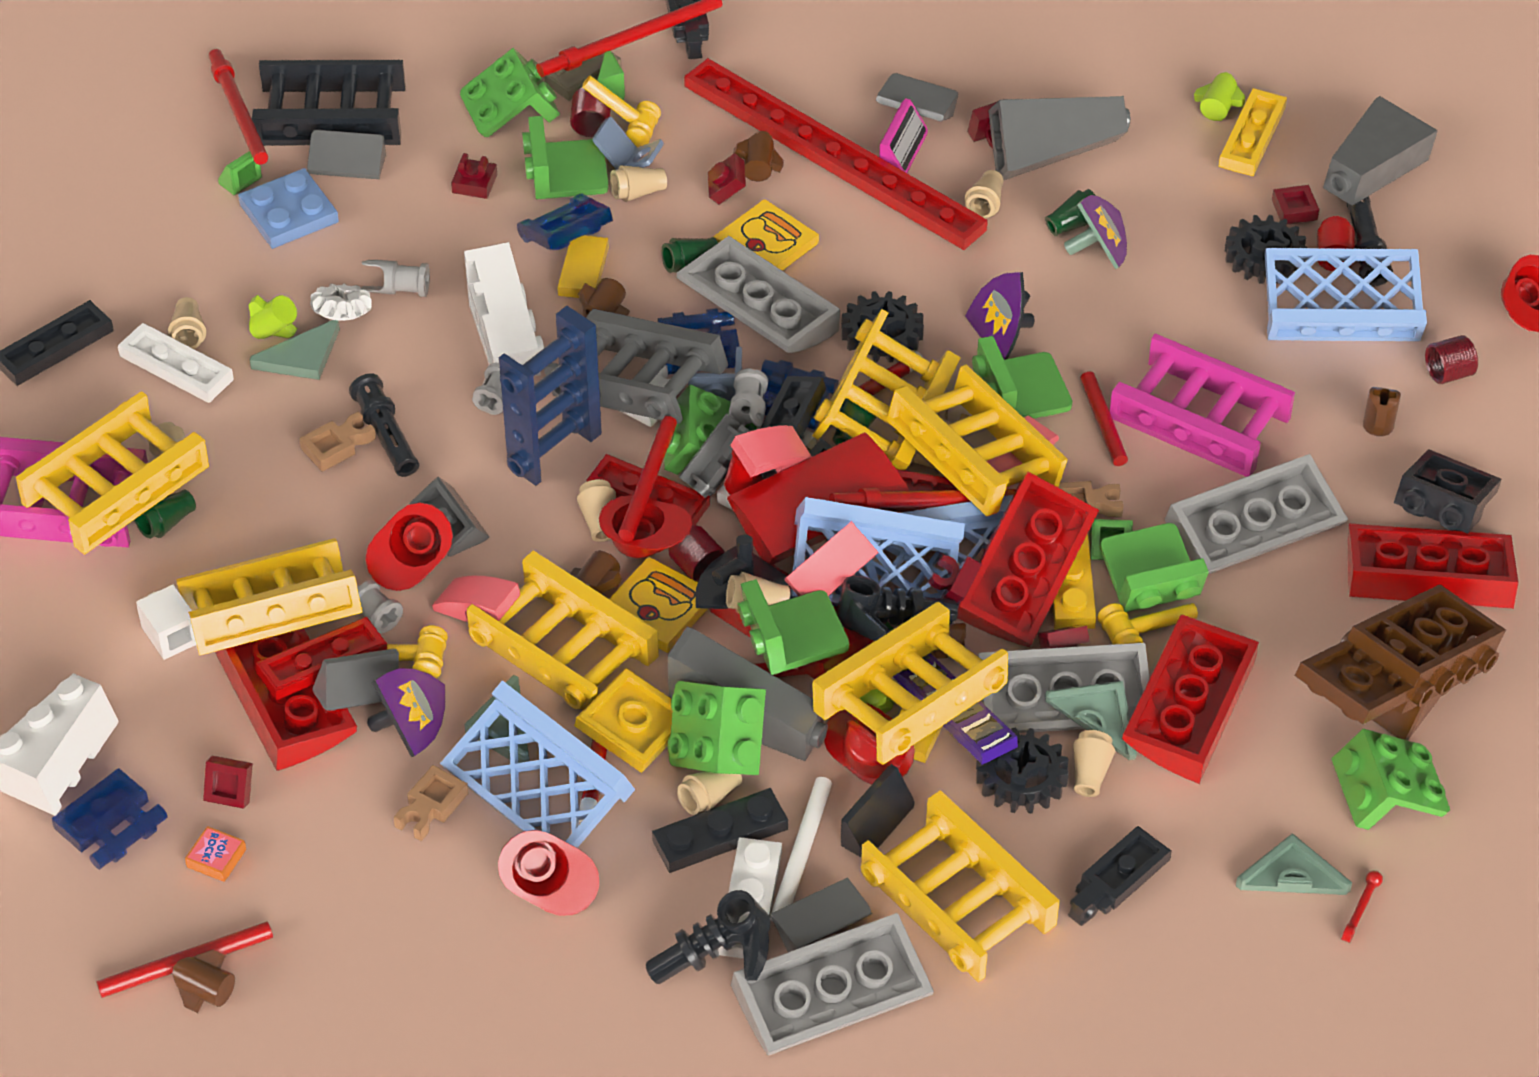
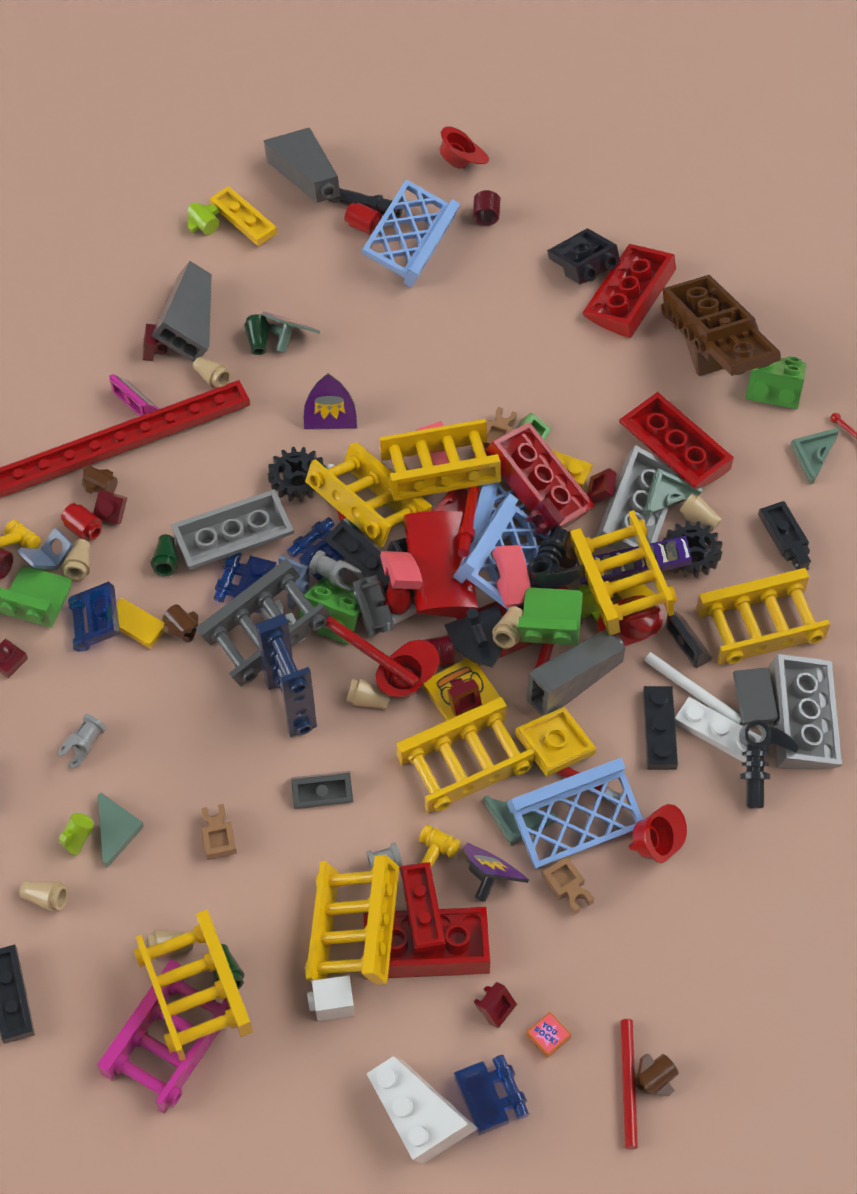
camera: 65 degrees left, 10 degrees up
(175, 362) = (79, 914): white plate -> none
(341, 302) = (90, 790): white gear -> none
(349, 679) = (452, 892): dark grey slope -> none
(401, 456) = (205, 796): black pin -> none
(409, 546) = (347, 817): red piece -> none
(485, 592) = (408, 794): coral slope -> none
(489, 395) = (224, 716): light grey bush -> none
(500, 305) = (165, 685): white wedge -> none
(599, 572) = (423, 716): reddish brown piece -> none
(624, 479) = (357, 664): red tile -> none
(638, 593) = (464, 696): none -> dark red tile
(690, 163) = (81, 522): none -> red brick
(705, 790) = (629, 721): tan cone -> none
(716, 728) = (600, 695): bright green bracket -> none
(771, 234) = (172, 504): yellow tile -> none
(929, 99) = (96, 374): dark grey slope -> none
(1025, 382) = (385, 418): bright green bracket -> none
(1104, 418) = (433, 393): red bar -> none
(1126, 631) = (605, 454): yellow piece -> none
(1152, 567) = (573, 420): bright green bracket -> none
(1193, 432) = (460, 360): dark pink fence -> none
(1248, 243) = (344, 253): black gear -> none
(1256, 514) = (553, 354): light grey slope -> none
(1295, 204) = (317, 223): dark red plate -> none
(1381, 411) = (508, 257): reddish brown piece -> none

